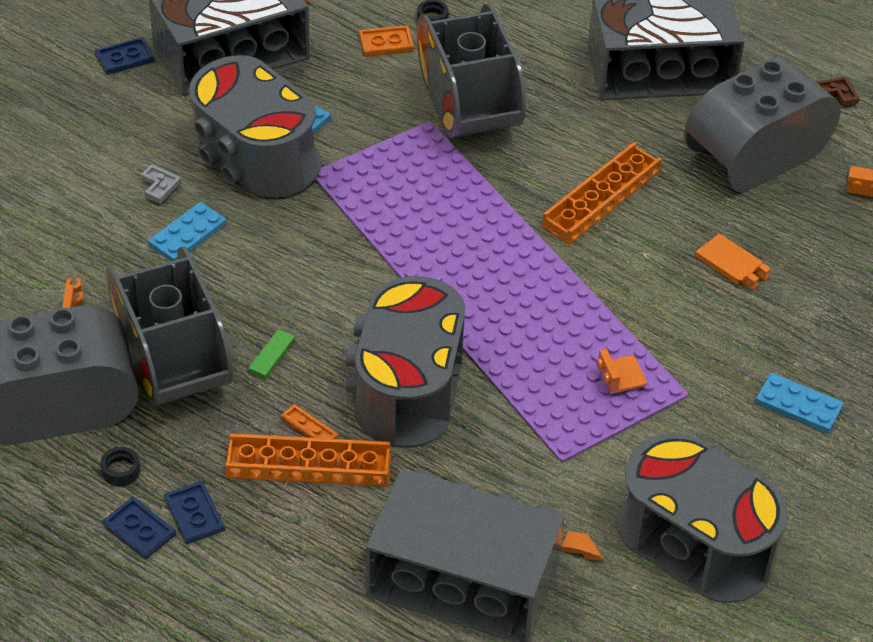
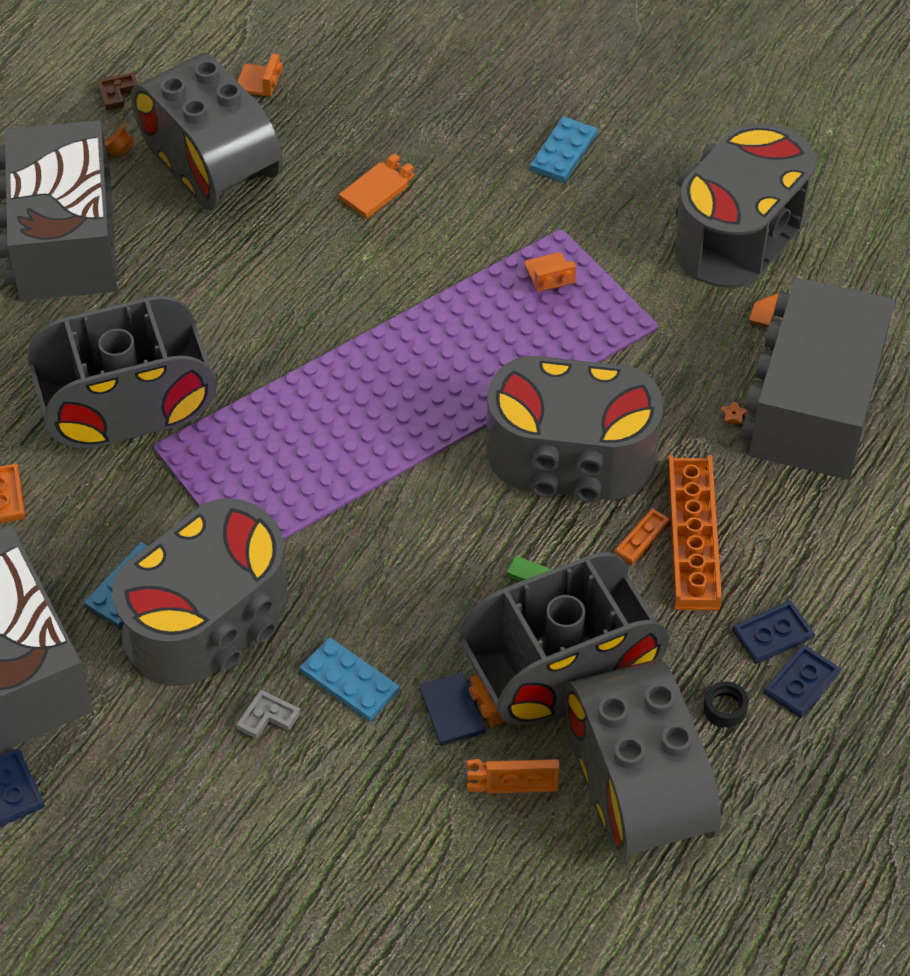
camera: 90 degrees left, 5 degrees up
(600, 193) = (281, 288): orange tile -> none

